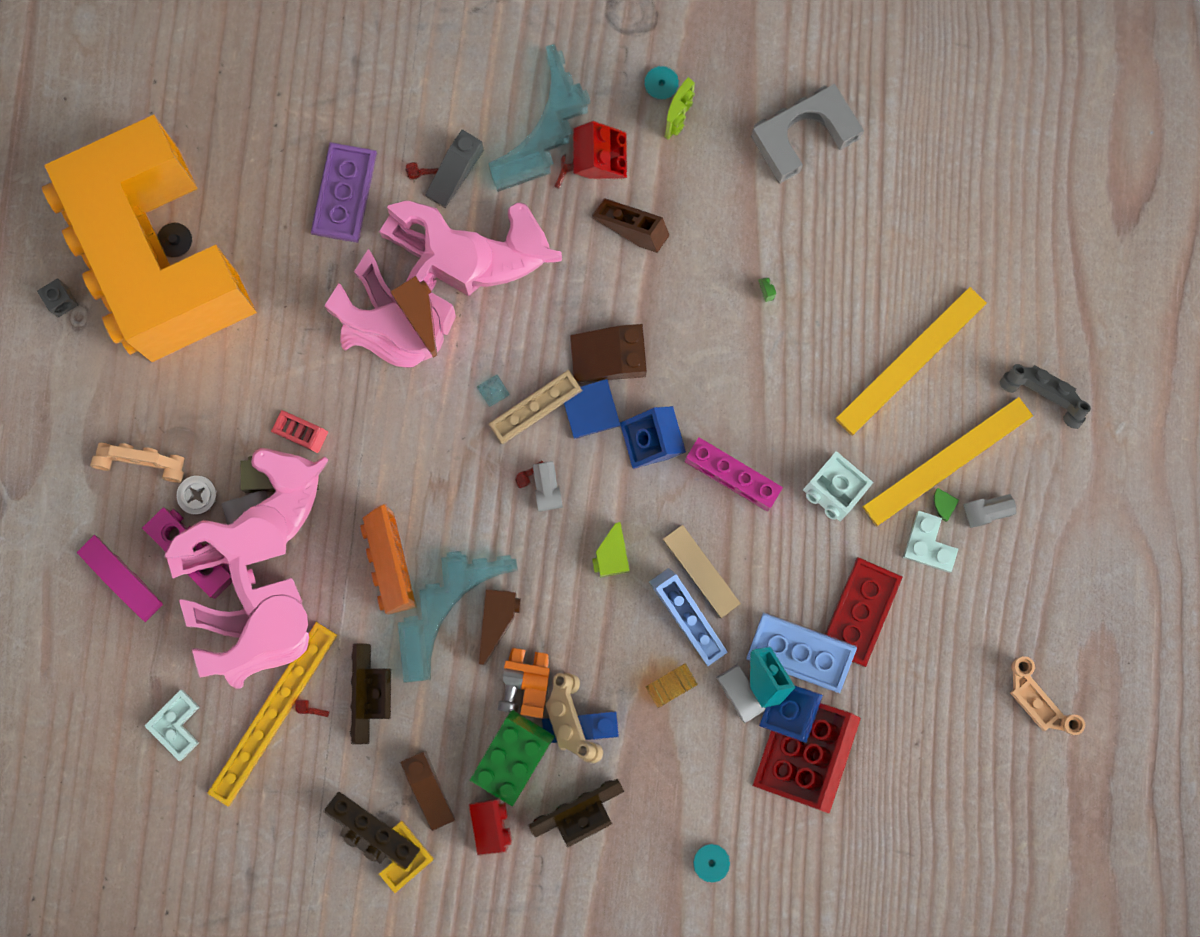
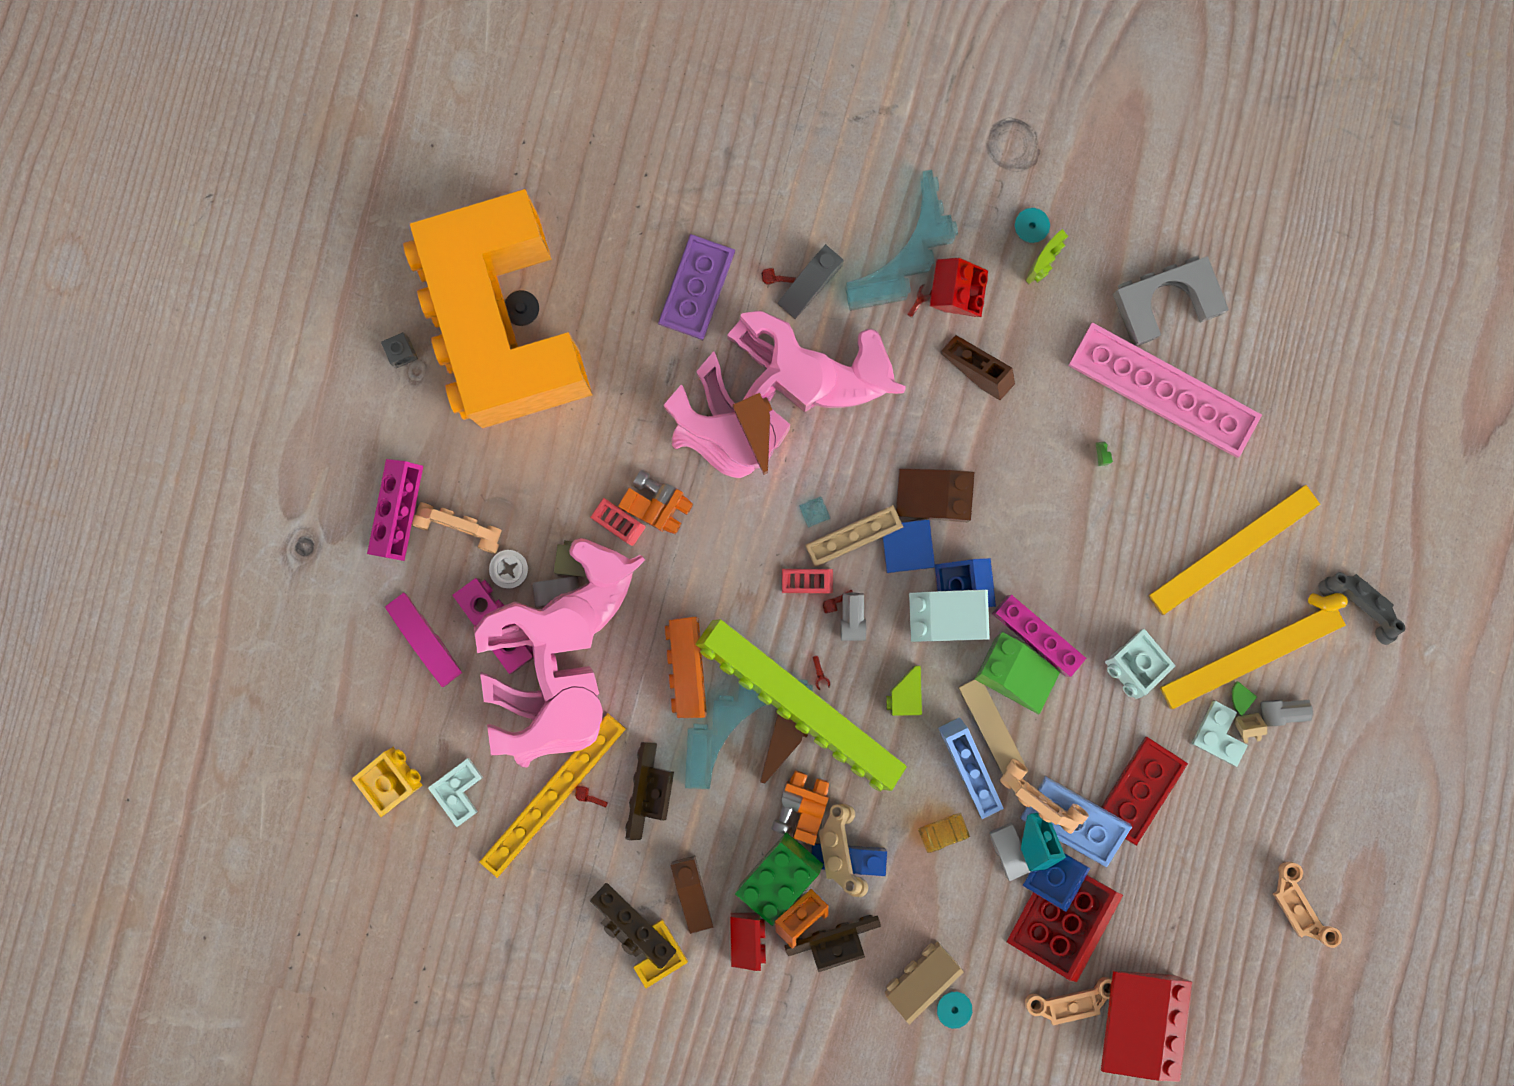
camera: 10 degrees right, 5 degrees up
(73, 453) = (395, 509): none -> dark pink brick
(102, 726) = (387, 781): none -> yellow plate
(340, 410) = (661, 507): none -> orange hips
(505, 577) = (800, 705): none -> lime brick
(516, 455) = (828, 580): none -> coral slope
(522, 546) = (820, 675): none -> clear red hand
(539, 792) = (800, 917): none -> orange panel
(639, 467) = (949, 615): none -> light aqua slope
(673, 838) = (923, 981): none -> tan slope
(719, 514) = (1017, 673): none -> bright green slope
(769, 642) = (1033, 798): none -> light nougat plate
(816, 218) = (1165, 390): none -> bright pink plate
(830, 838) = (1072, 1005): none -> light nougat plate
(905, 845) = (1146, 1025): none -> red slope
(958, 529) = (1251, 726): none -> tan tile
(1012, 396) = (1328, 603): none -> yellow arm

